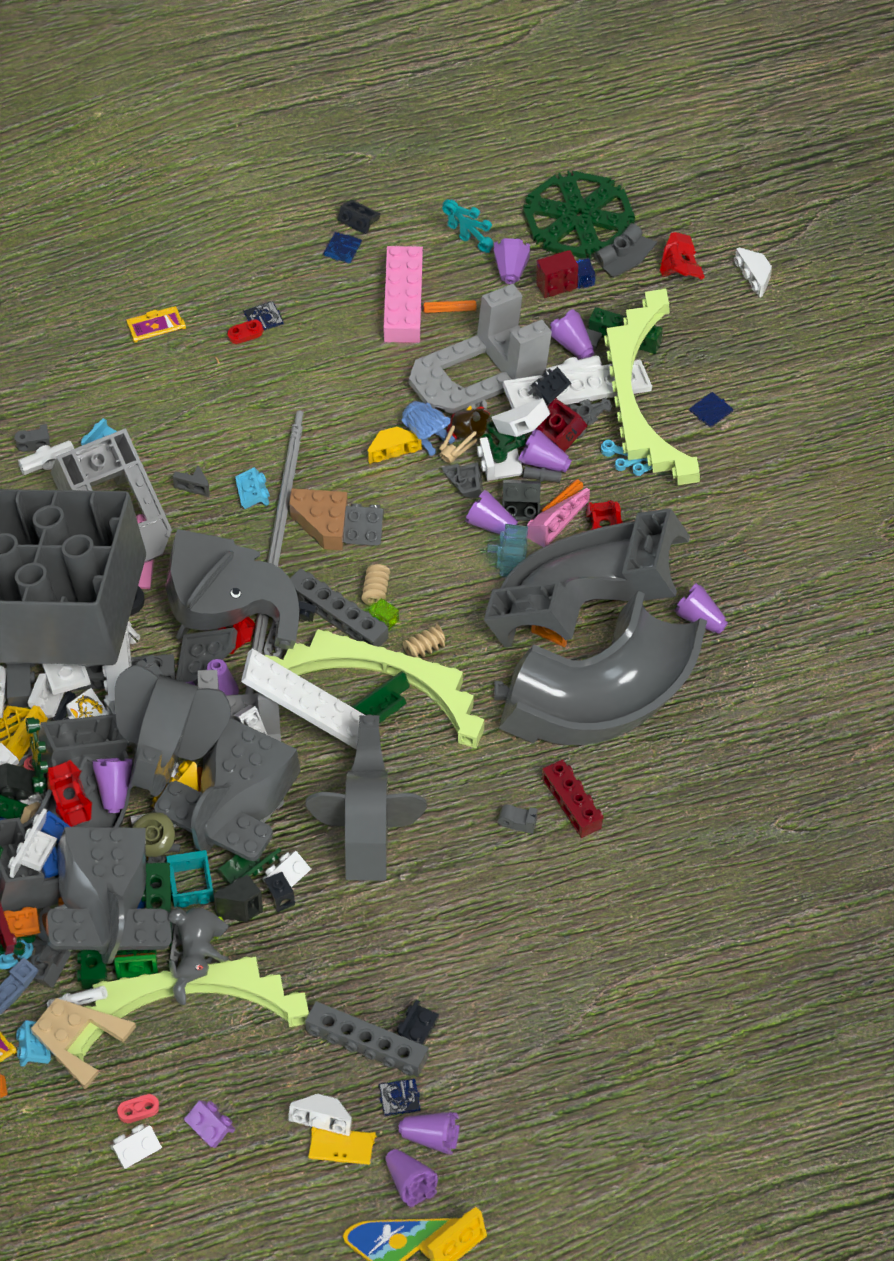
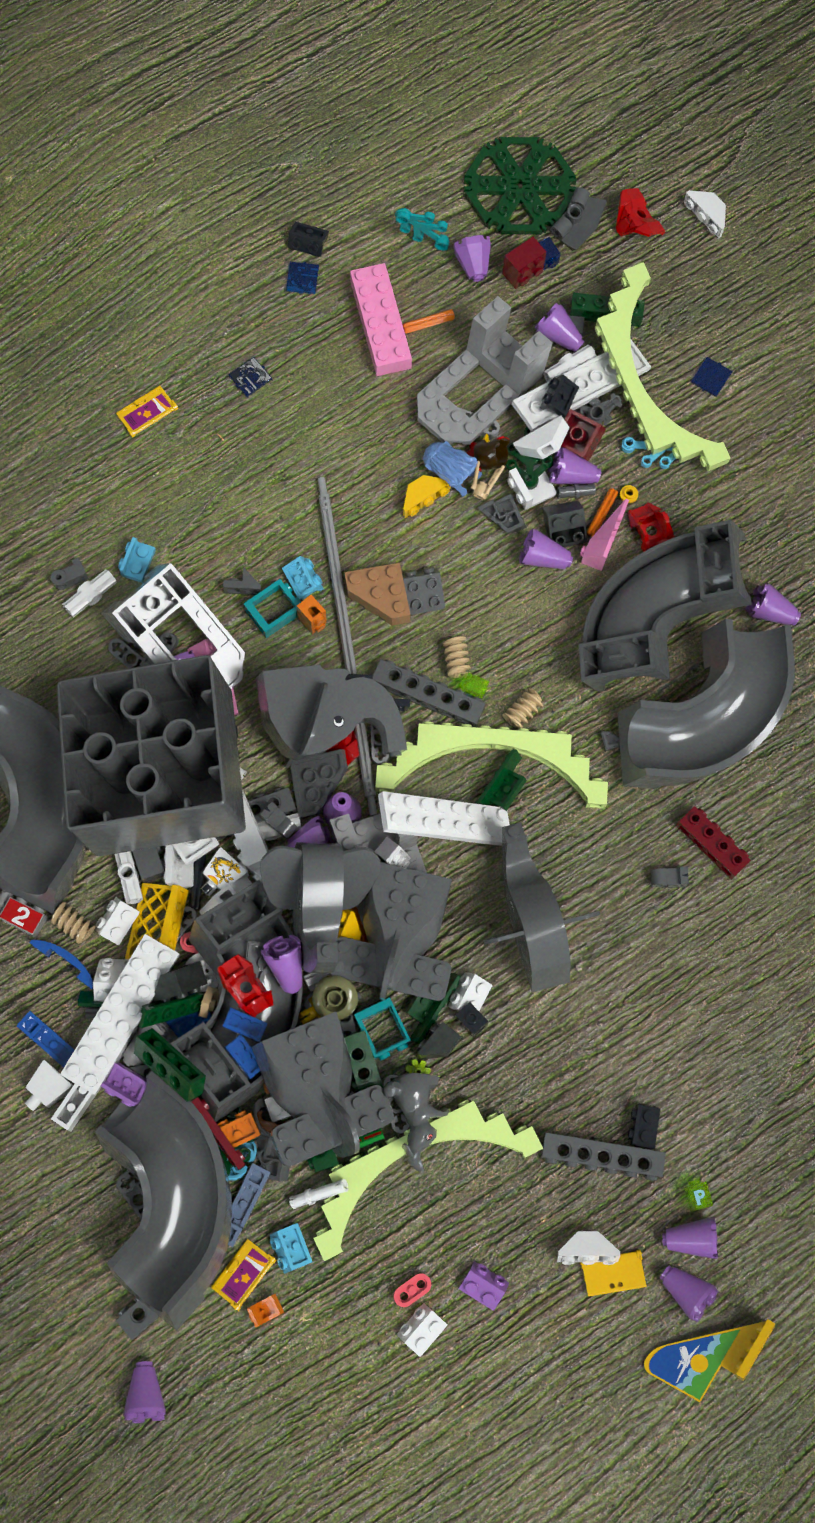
camera: 20 degrees left, 20 degrees up
(35, 848) = (235, 1061): white bracket -> none
(37, 747) = (202, 954): dark green plant -> none
(62, 1026) = (315, 1229): tan wing -> none
(217, 519) = (268, 630): none -> teal window
(245, 331) = (239, 399): red plate -> none
(248, 520) = (312, 614): none -> orange brick
(399, 1097) = (650, 1205): piece -> none
(449, 1096) = (698, 1195): none -> clear neon green brick
(511, 549) = (577, 587): clear light blue brick -> none
(594, 493) = (633, 490): none -> yellow plate

